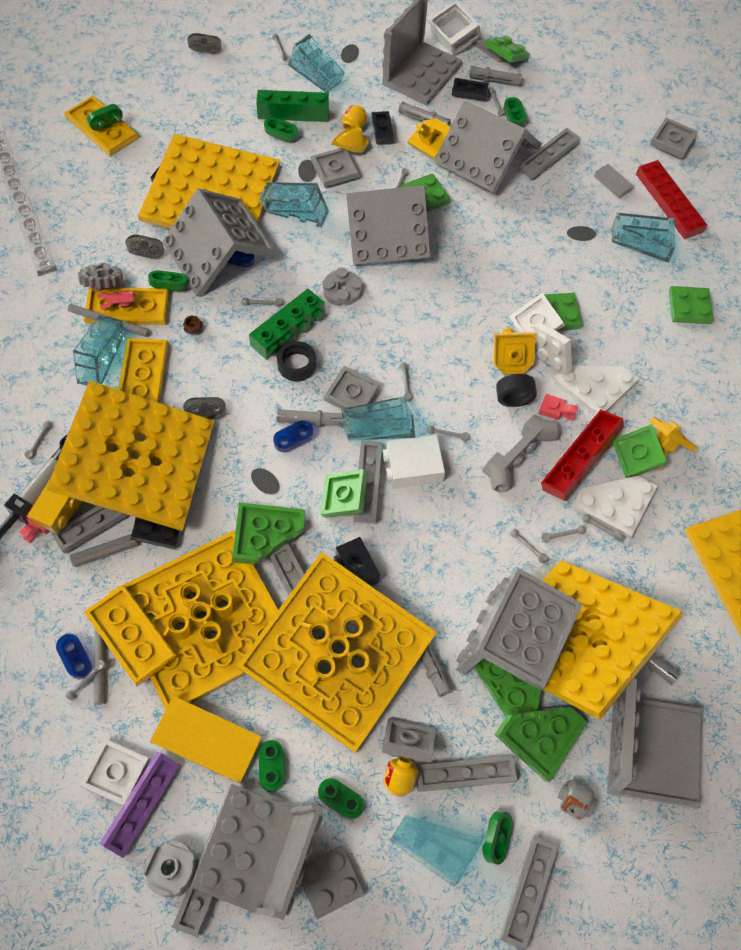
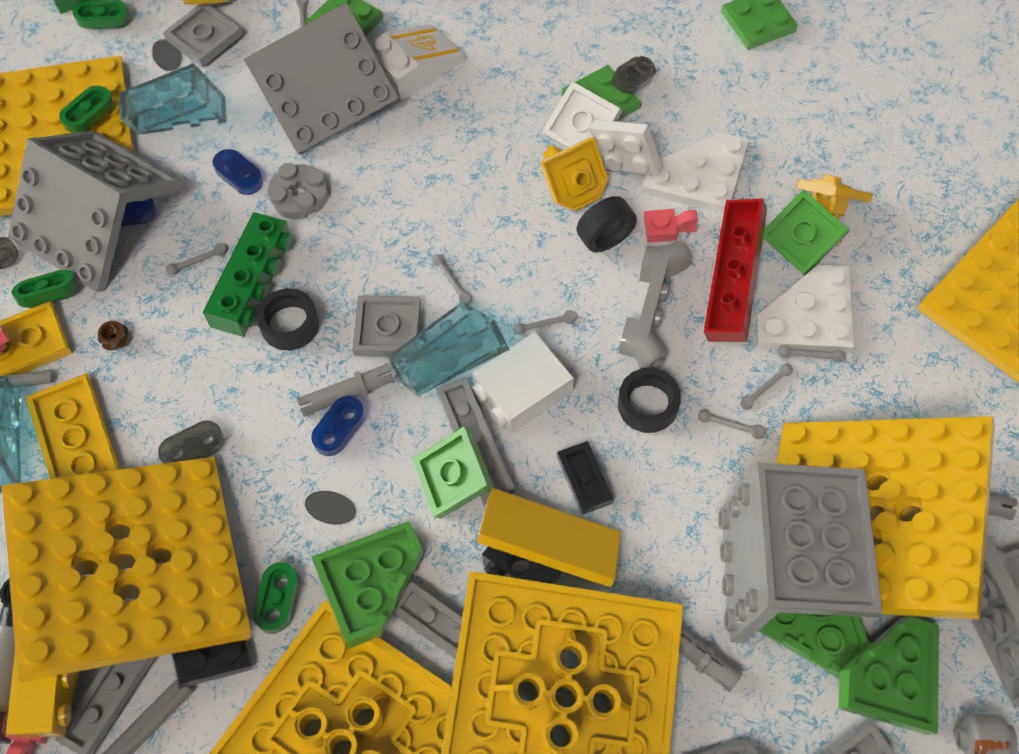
camera: 20 degrees left, 0 degrees up
(207, 516) = (275, 599): none -> green plate
(242, 184) = (86, 109): none -> green plate
(310, 257) = (235, 169): none -> clear blue plate
(380, 556) = (550, 537): none -> yellow tile
(421, 534) = (584, 478): none -> black plate
(454, 236) = (414, 57): none -> white slope
(492, 494) = (657, 379): none -> black tyre
(586, 306) = (634, 74): none -> clear smoke plate

